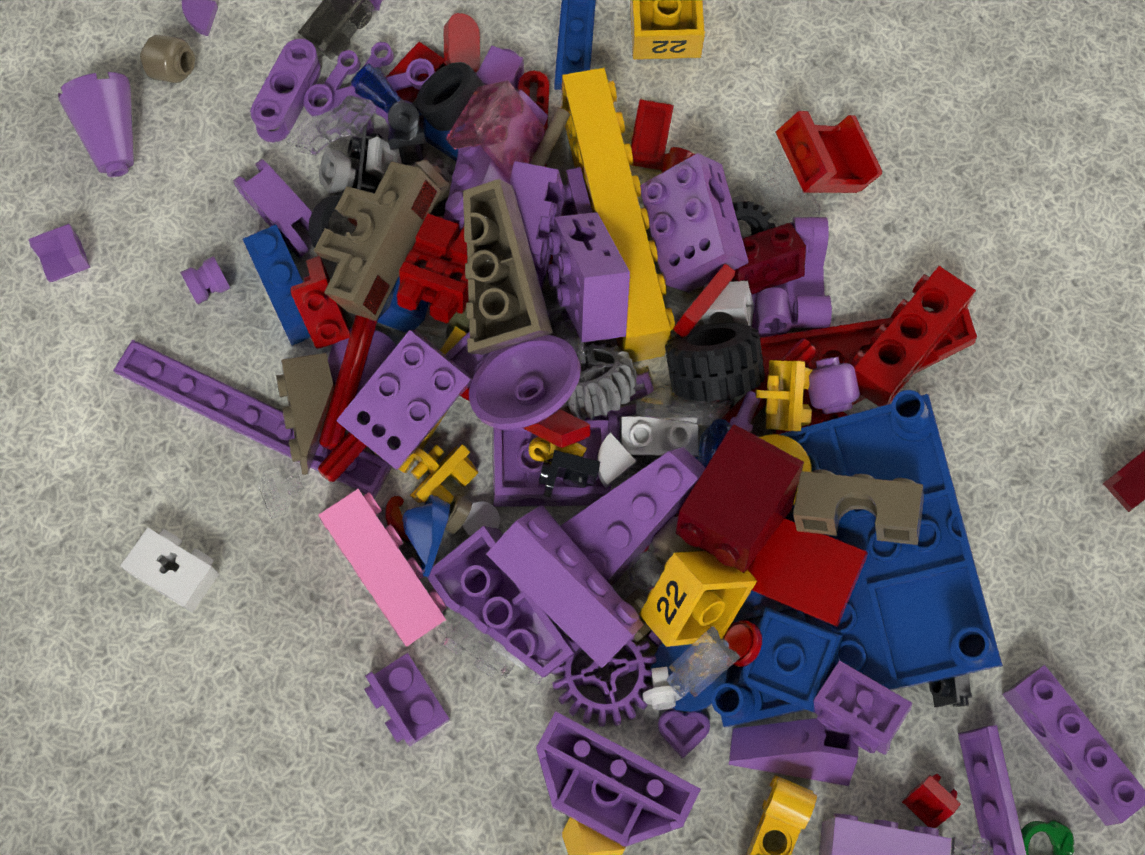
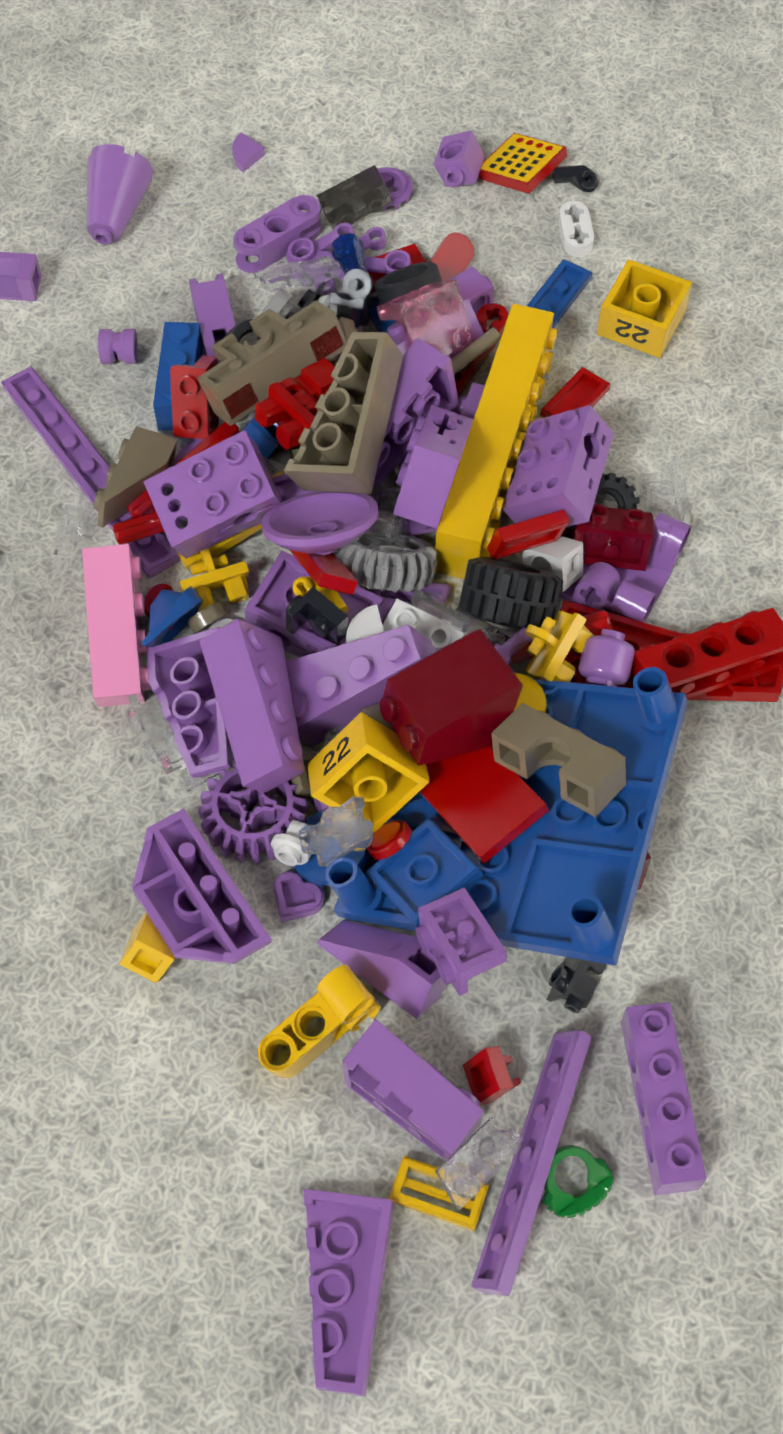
camera: 30 degrees right, 10 degrees down
(167, 58) = (196, 171): dark tan head -> none
(407, 700) = (68, 748): medium lavender bracket -> none
(828, 156) = (724, 479): red panel -> none

